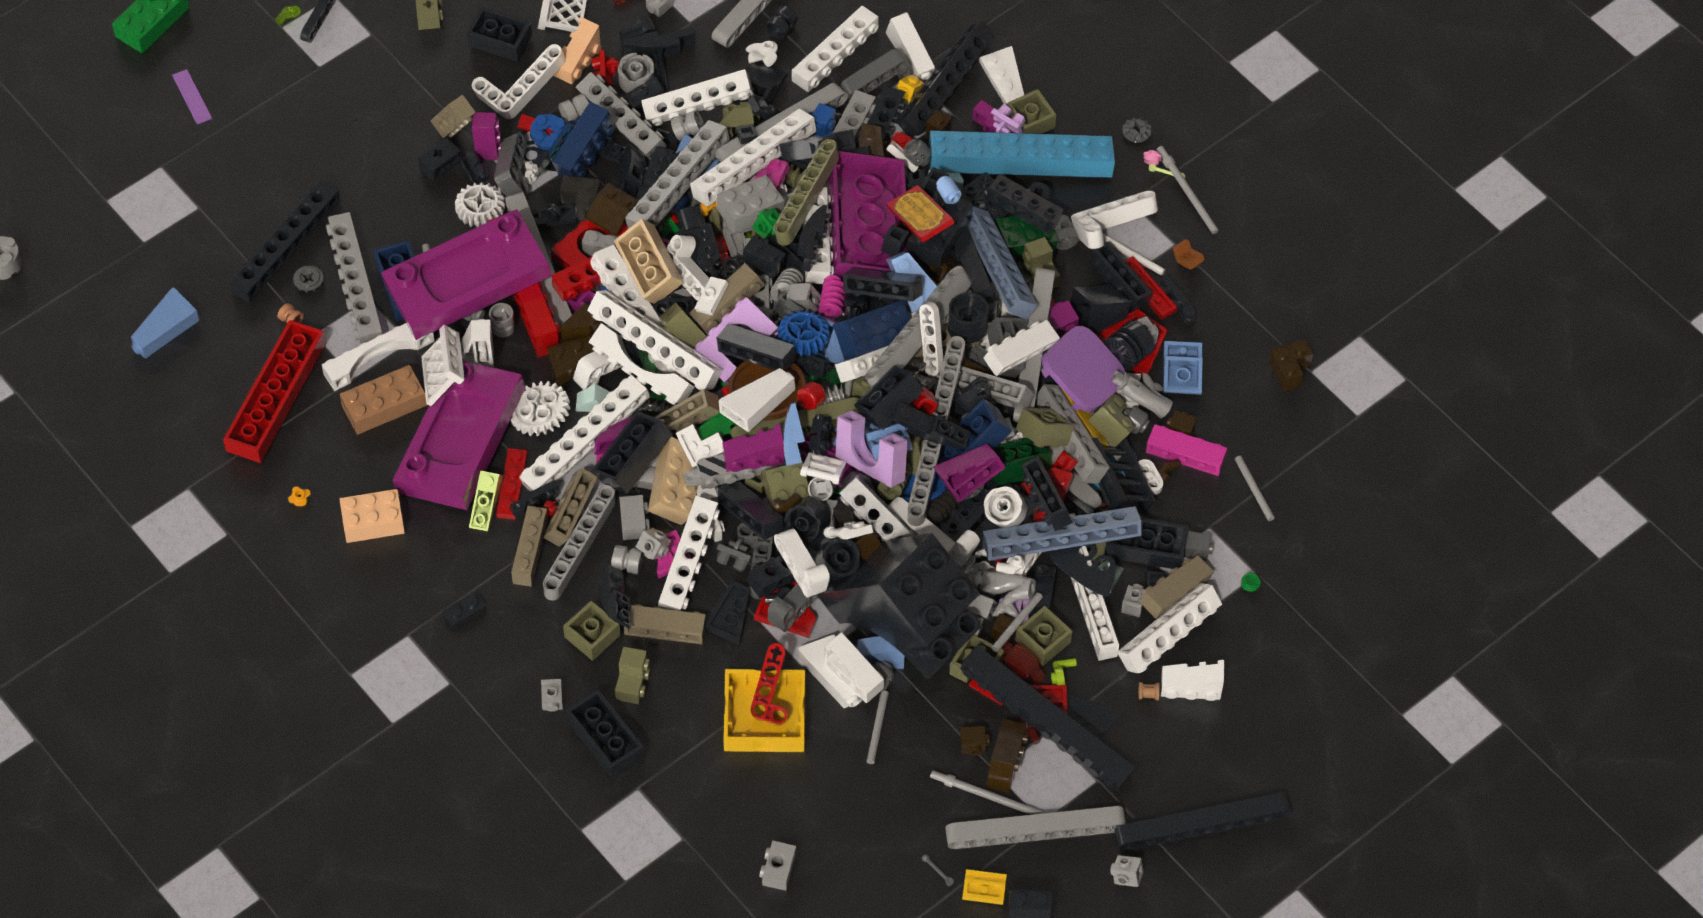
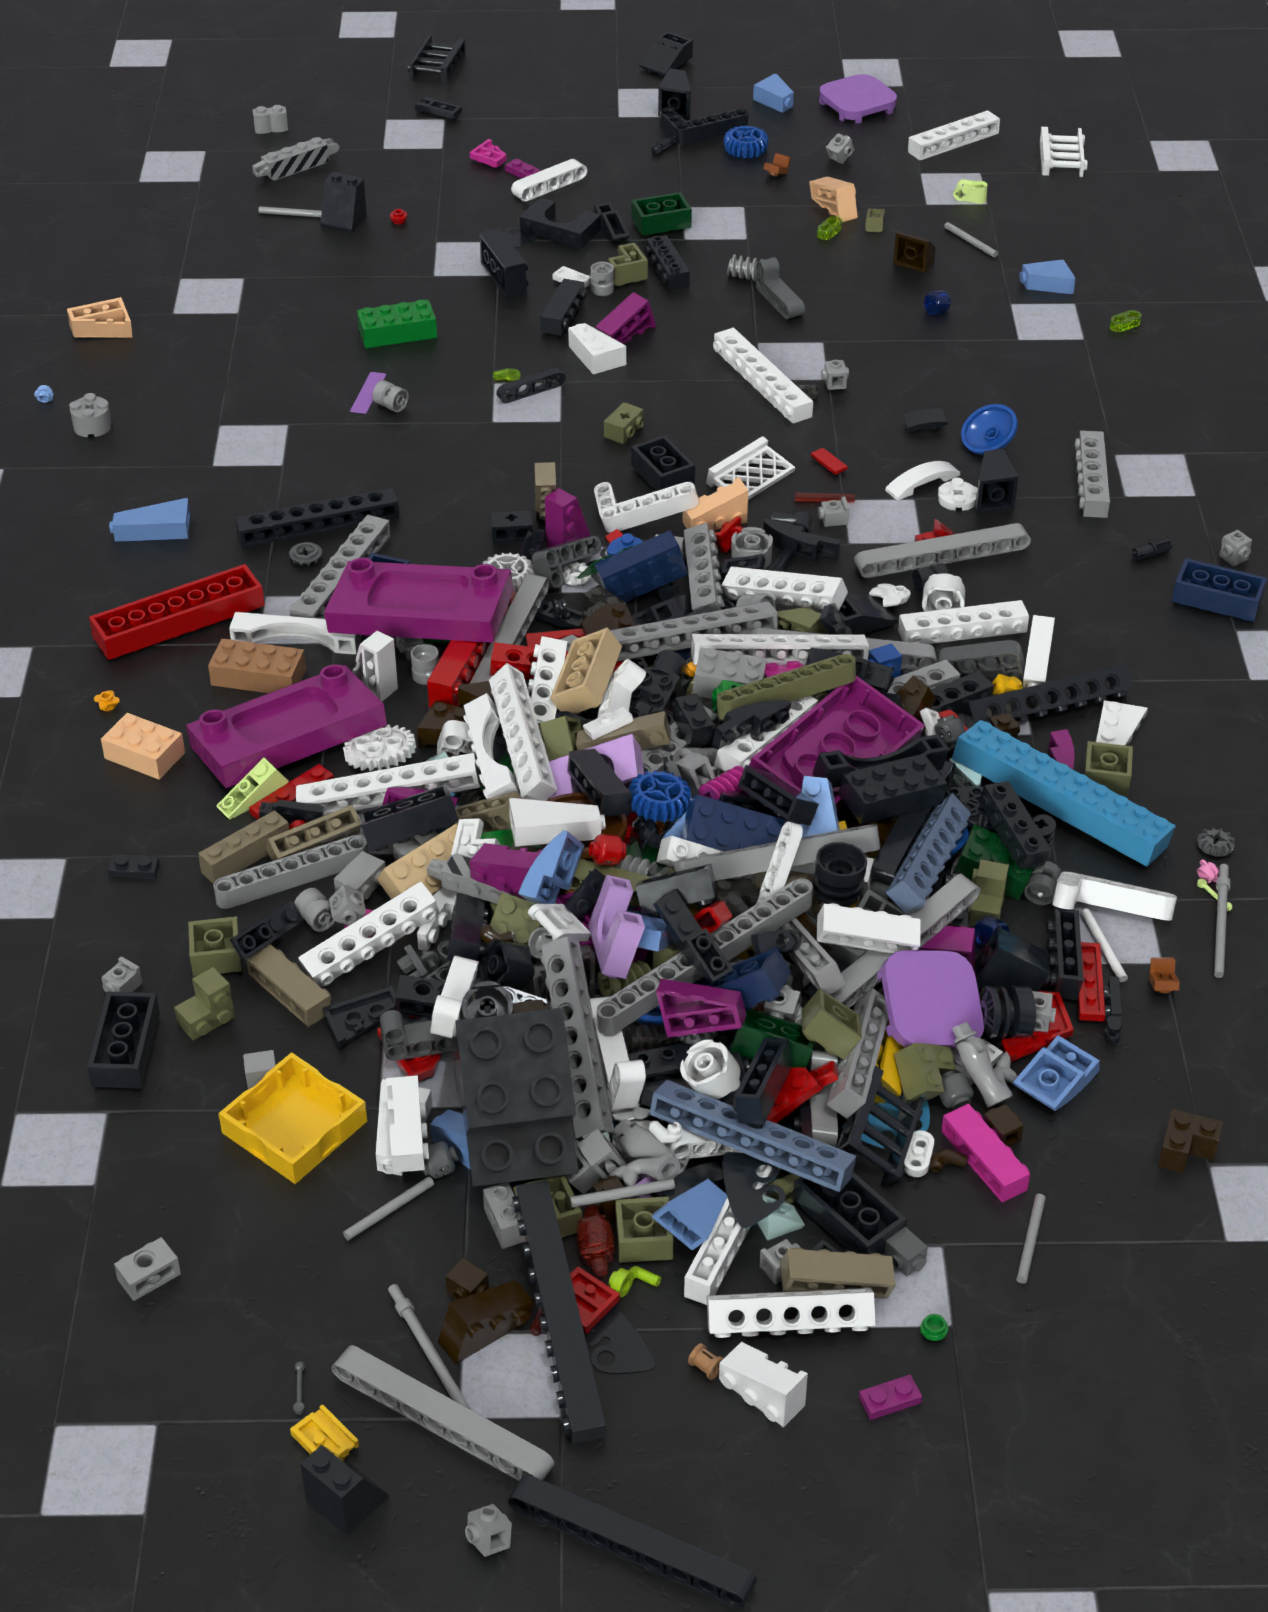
camera: 40 degrees right, 15 degrees down
(215, 92) = (390, 396): none -> light grey wheel
(288, 312) = (259, 567): nougat wheel -> none
(443, 364) = (328, 657): white fence -> none
(711, 692) = (257, 1066): none -> light grey panel
(746, 134) = (794, 628): black tile -> none
(770, 682) = (318, 1091): red beam -> none
(806, 34) = (943, 592): none -> white brick
(850, 530) = (526, 988): white plate -> none
(920, 213) = (878, 758): tile -> none
(948, 190) = (926, 752): light blue brick -> none
(954, 684) = (501, 1214): none -> light grey brick
(1006, 123) = (1069, 755): lavender hips -> none
(1062, 290) = (985, 928): none -> clear blue head
(1070, 606) = (693, 1213): none -> medium blue slope
(1262, 640) = (890, 1397): none -> magenta plate

